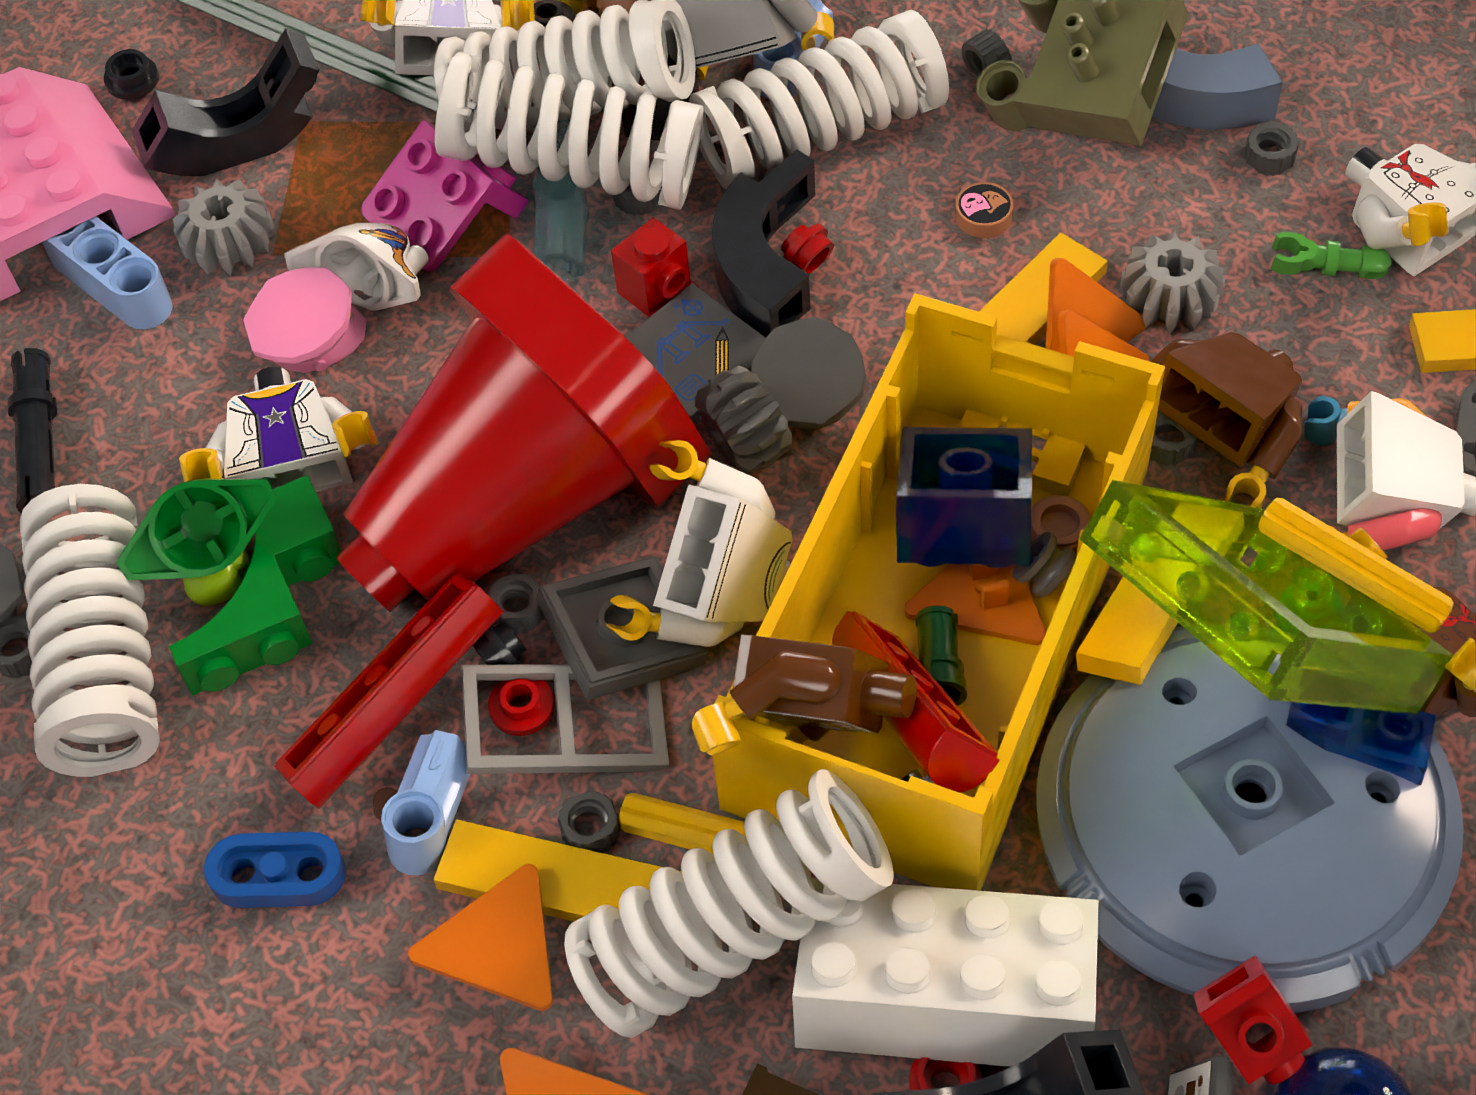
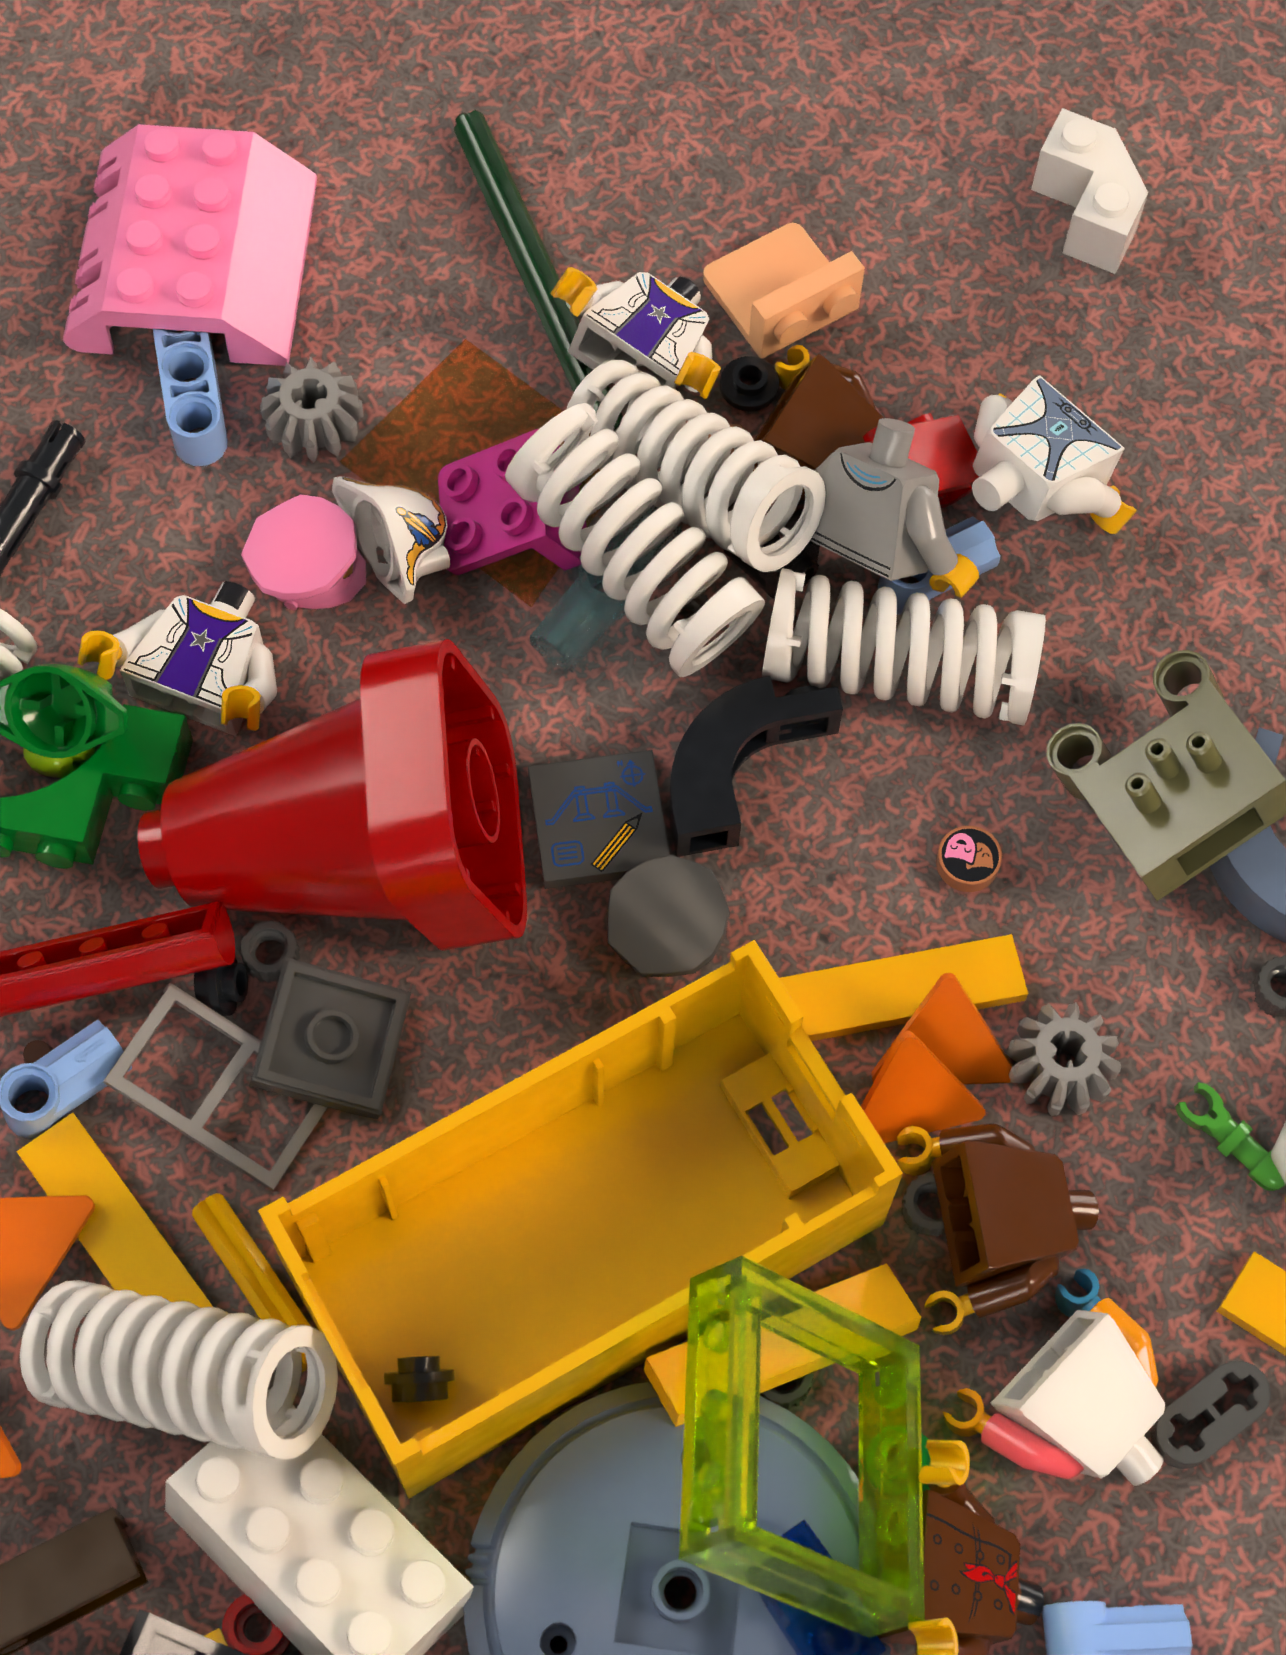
camera: 30 degrees right, 10 degrees up
(130, 74) = (352, 178): black plate -> none
(219, 133) = (389, 310): black arch -> none
(525, 719) = (201, 1066): red plate -> none
(589, 803) = (155, 1180): dark grey axle -> none
(651, 267) = (625, 713): red brick -> none
(721, 558) = (433, 1049): white torso -> none
(743, 419) = (572, 923): dark grey gear -> none
(805, 688) = (362, 1239): reddish brown torso -> none
(807, 247) = (774, 788): red plate -> none
(937, 730) = (460, 1308): red brick -> none
(940, 650) = (549, 1264): dark green pin -> none
(964, 496) = (675, 1144): clear blue brick -> none
(984, 50) = (1104, 702): dark grey axle -> none
(985, 602) = (640, 1231): orange piece -> none
(1047, 565) = (699, 1250): dark grey bush -> none
(1061, 517) = (750, 1219): nougat tile -> none
(1355, 565) = (916, 1474): yellow axle -> none

